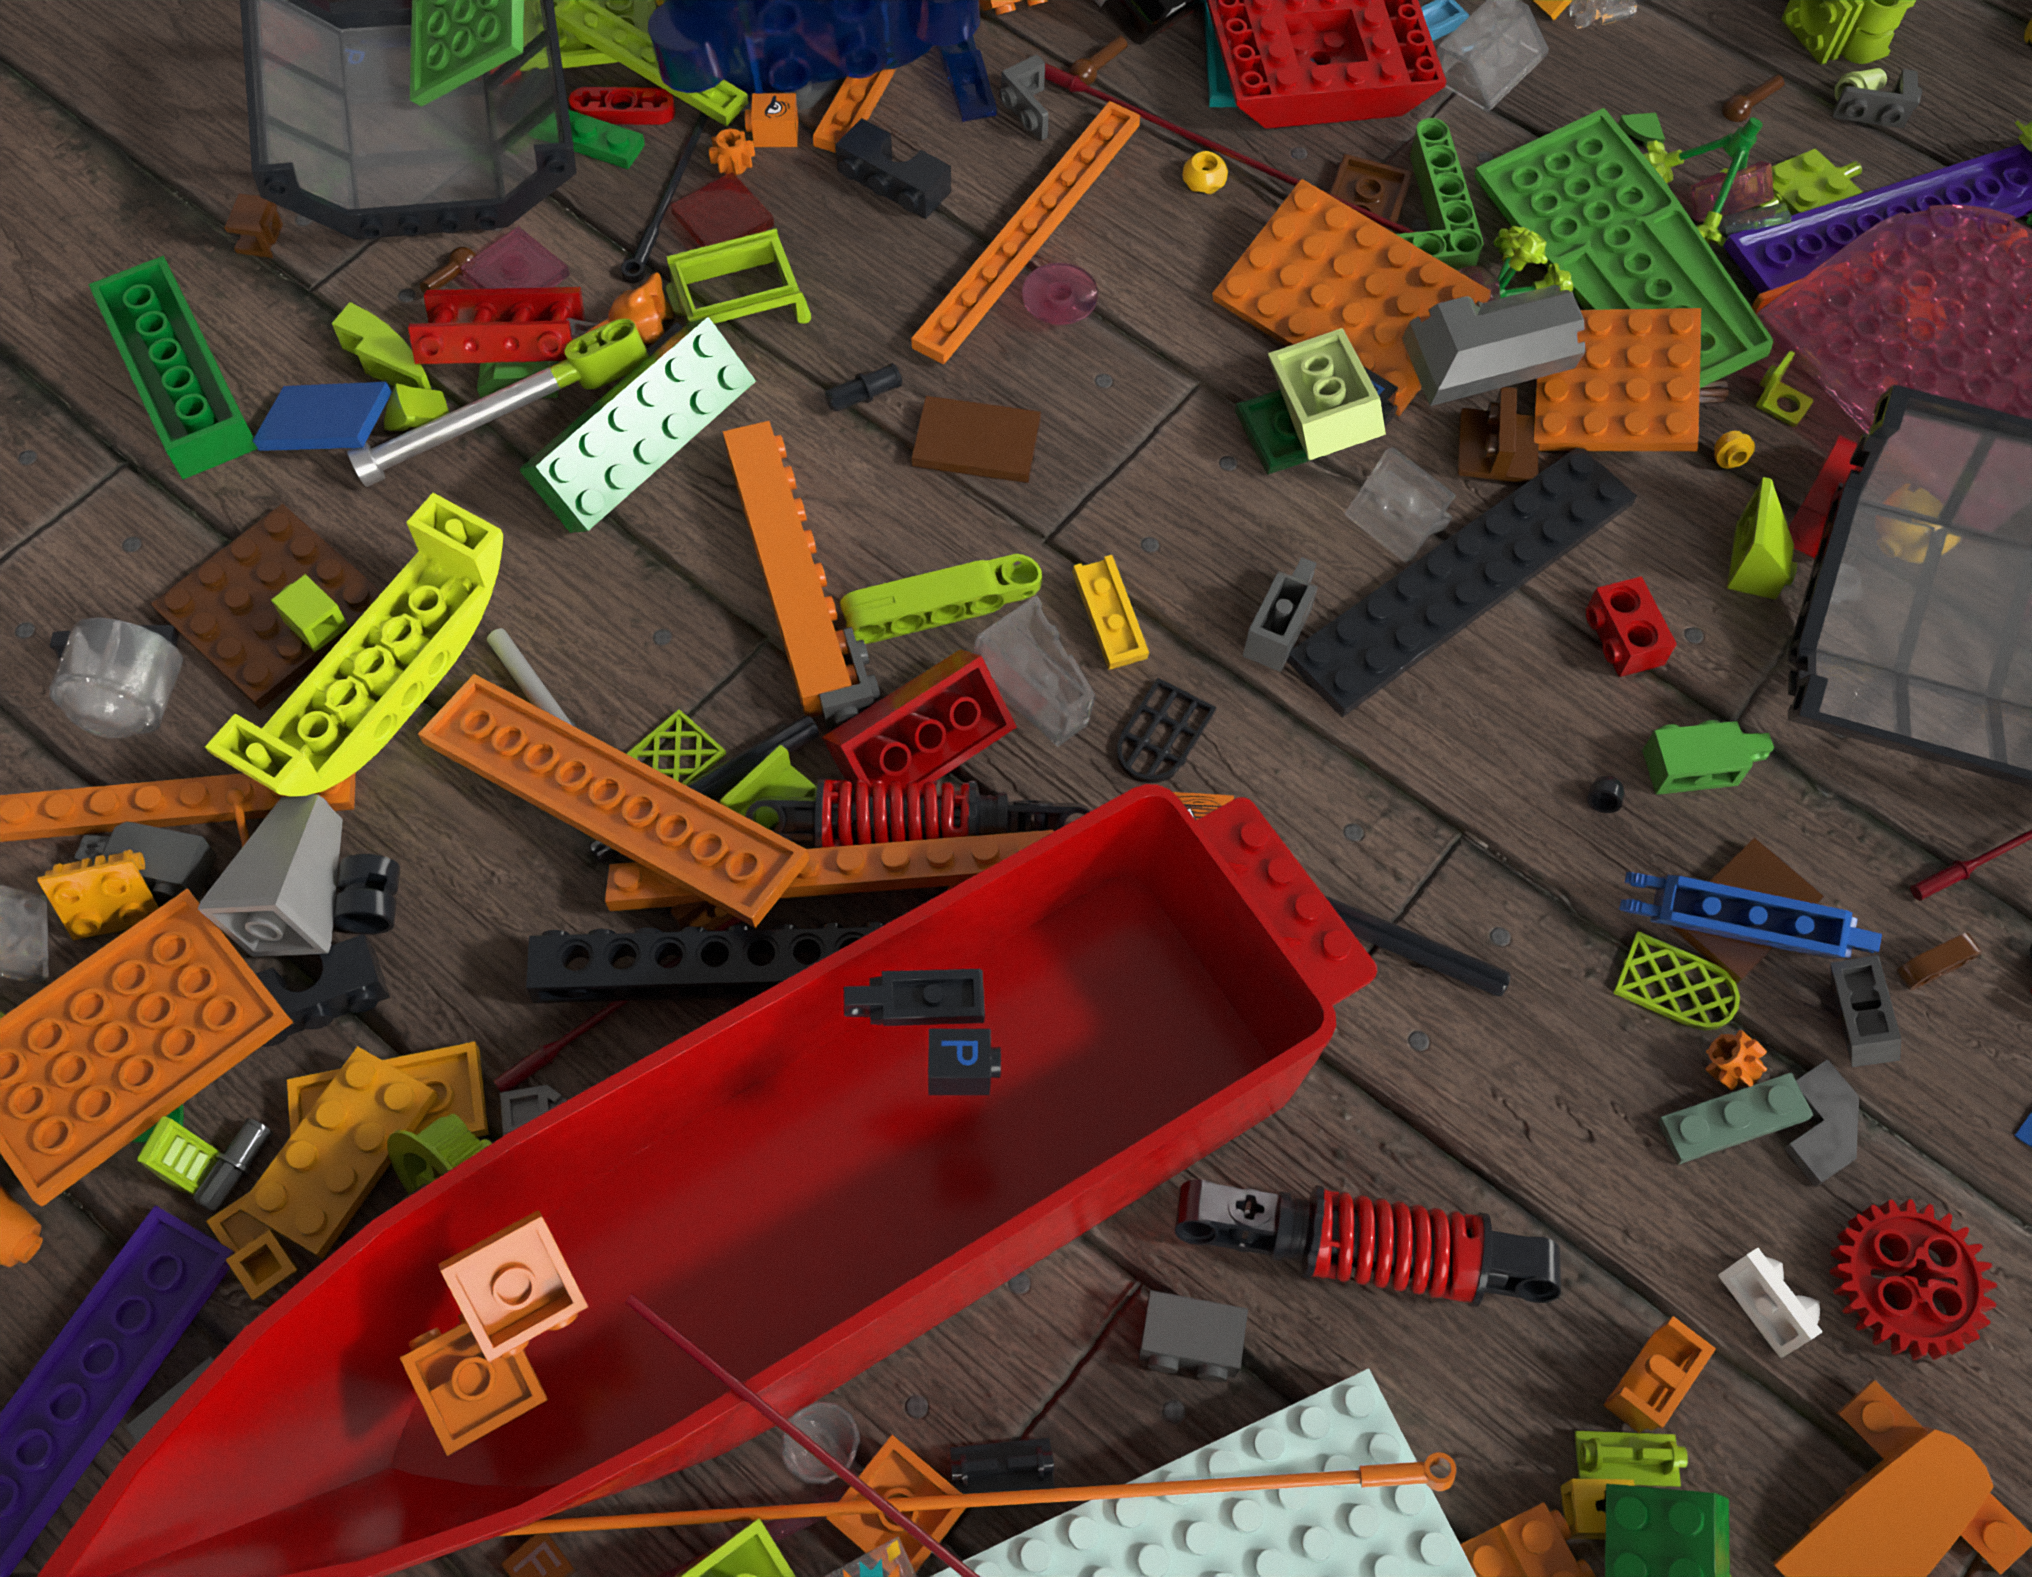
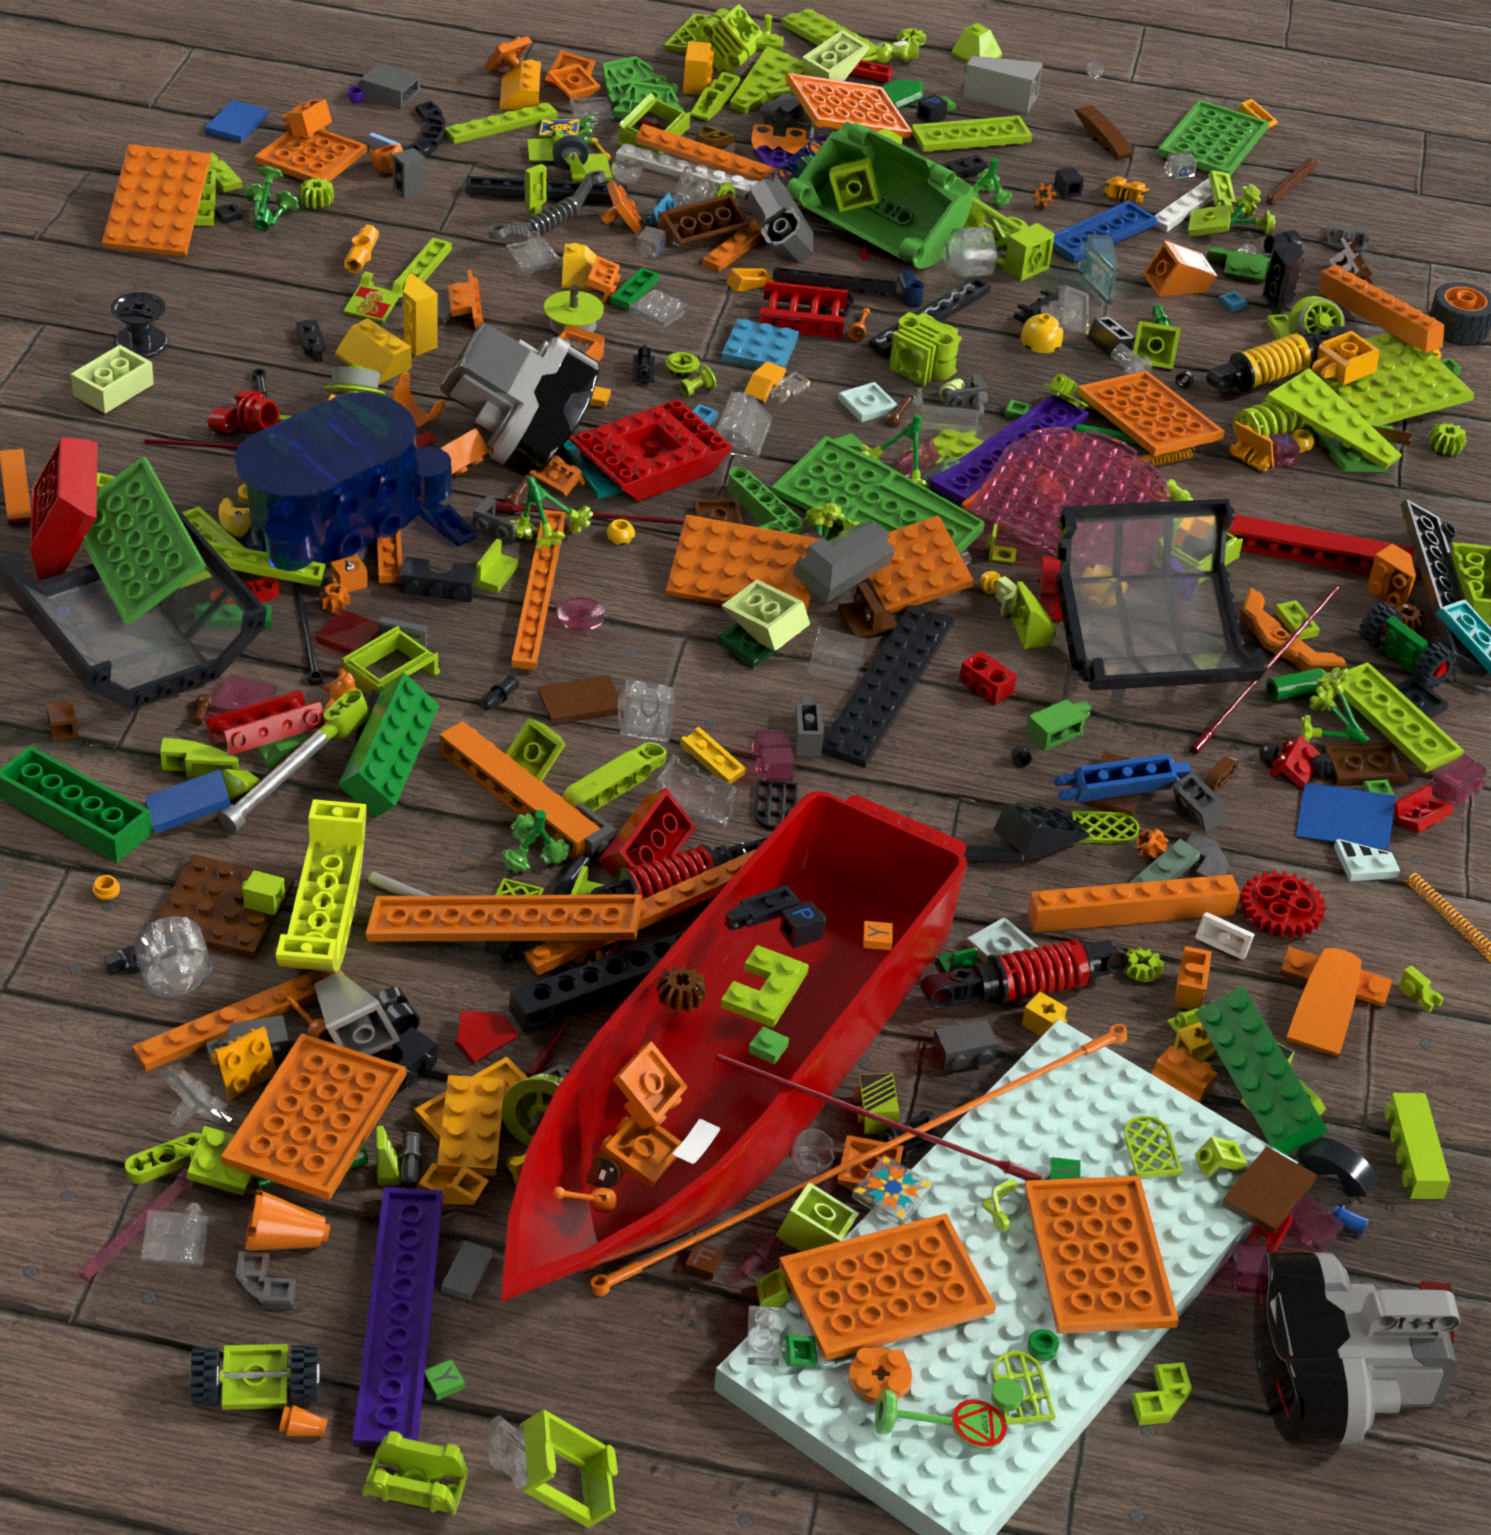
camera: 30 degrees left, 20 degrees down
(138, 515) = (105, 887): none -> light orange plate
(349, 1448) = (595, 1197): none -> orange hinge
(391, 1392) = (604, 1172): none -> tile
(472, 981) = (482, 1034): none -> red slope
(512, 1445) = (697, 1141): none -> white sticker
(657, 1123) = (681, 989): none -> reddish brown gear
(752, 639) = (526, 831): none -> bright green plant
(757, 1290) = (768, 1045): none -> bright green plate
(797, 245) = (410, 629): none -> dark grey tile
(813, 1199) = (782, 982): none -> lime plate
(849, 505) = (536, 748): none -> lime slope
(979, 1391) = (877, 1095): none -> lime brick
(984, 174) = (495, 568): none -> lime panel
(1050, 498) = (646, 710): none -> clear slope
(1074, 124) = (536, 494): none -> lime plant
(1082, 1132) = (877, 935): none -> orange tile
(1169, 53) = (559, 476): none -> orange bracket
(1203, 646) = (774, 755): none -> clear pink piece
(1277, 1170) = (959, 959): none -> green bracket
(1364, 1316) = (1042, 1014): none -> yellow brick
(1373, 1151) = (999, 939): none -> light aqua tile
(1555, 954) = (1038, 829): none -> black slope
(1581, 1310) = (1141, 972): none -> lime gear
(1644, 1169) = (1132, 903): none -> orange brick
(1713, 66) = (867, 402): none -> light aqua tile
(1744, 482) = (1005, 594): none -> yellowish green bracket
(1826, 132) = (949, 417): none -> clear piece
(1950, 150) = (1016, 409): none -> bright green tile

